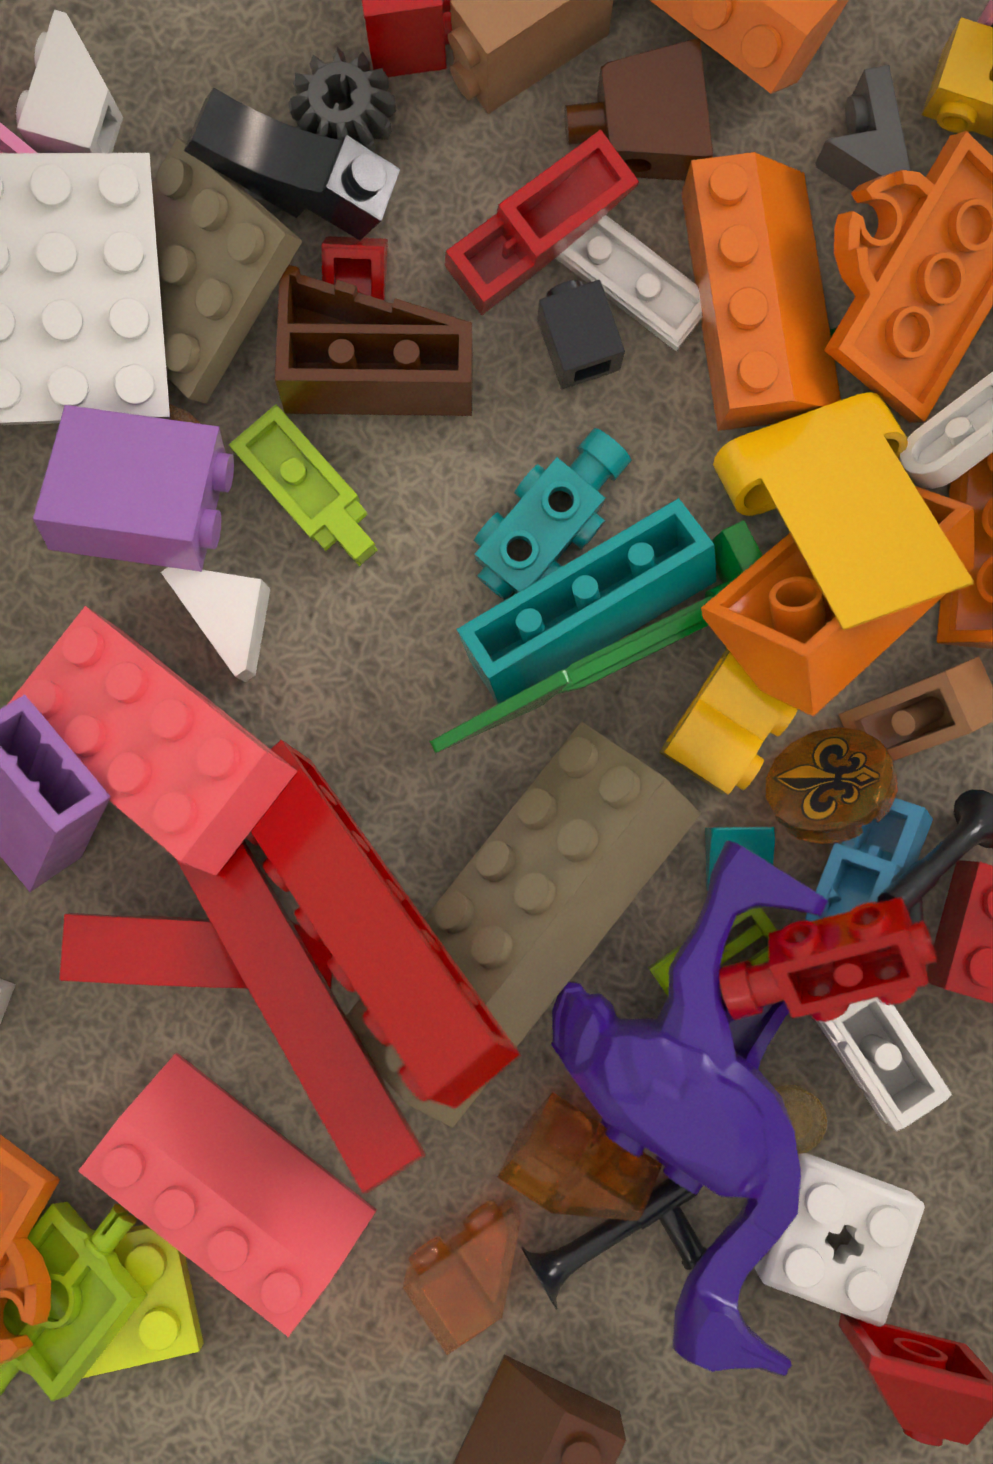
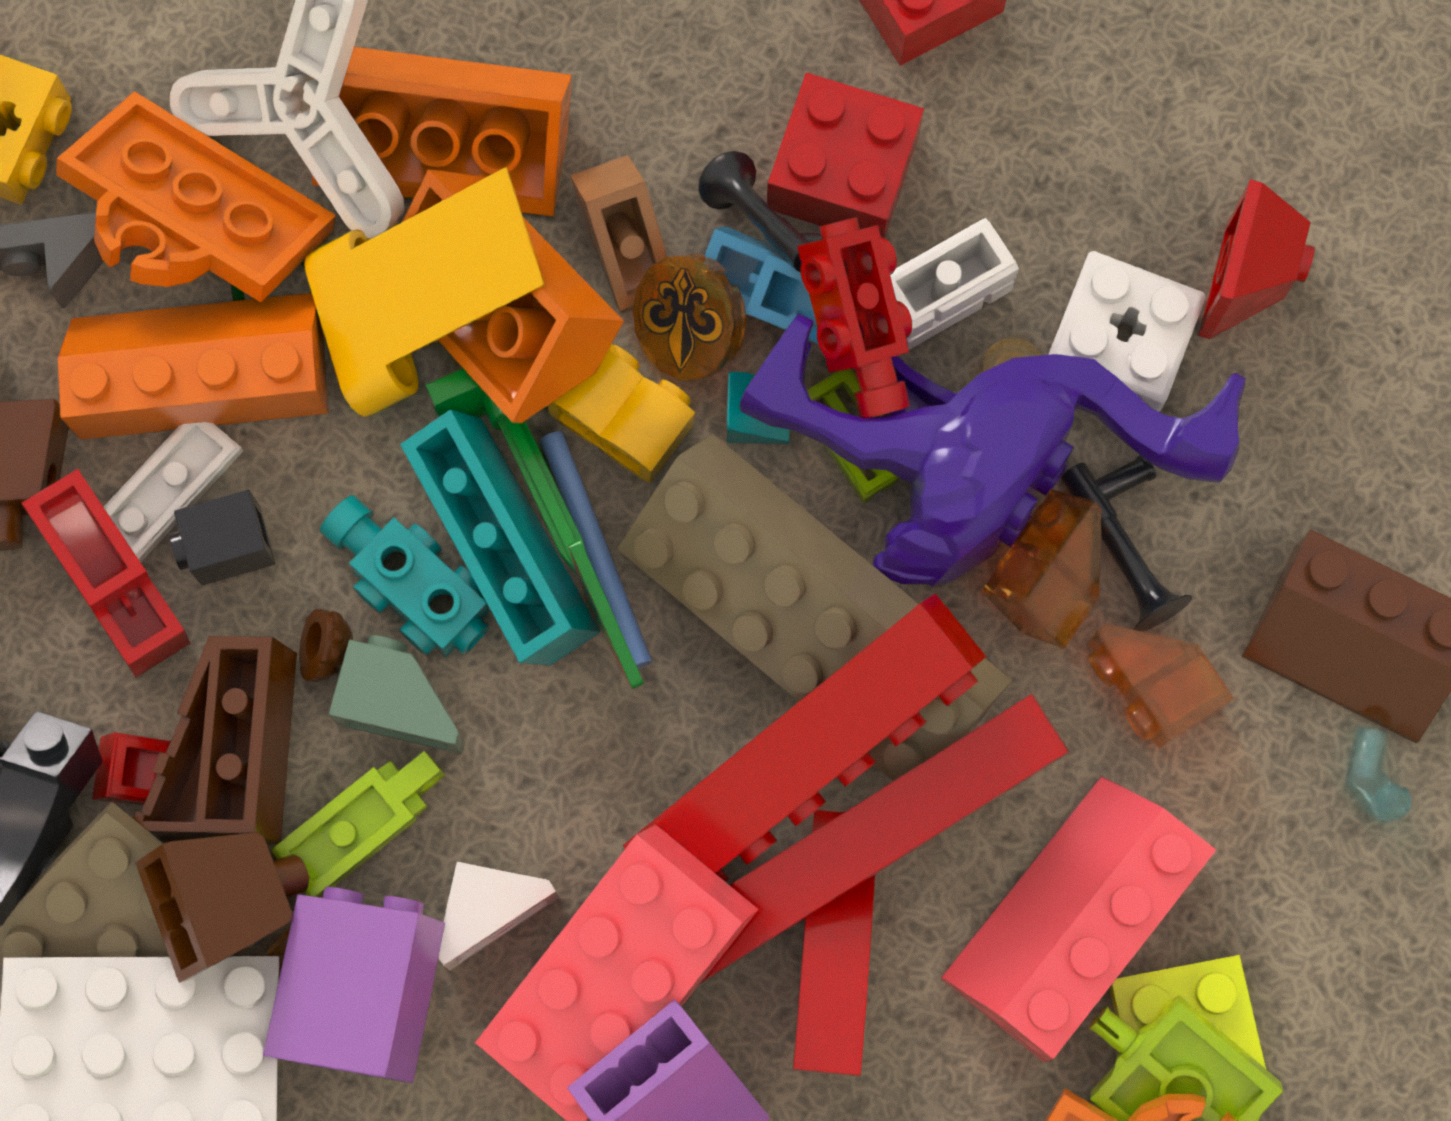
camera: 90 degrees left, 10 degrees down
(208, 352) = (218, 896): none -> reddish brown torso
(428, 510) = (390, 696): none -> sand green slope
(478, 441) = (323, 644): none -> reddish brown animal
(588, 700) = (583, 515): none -> medium blue bar

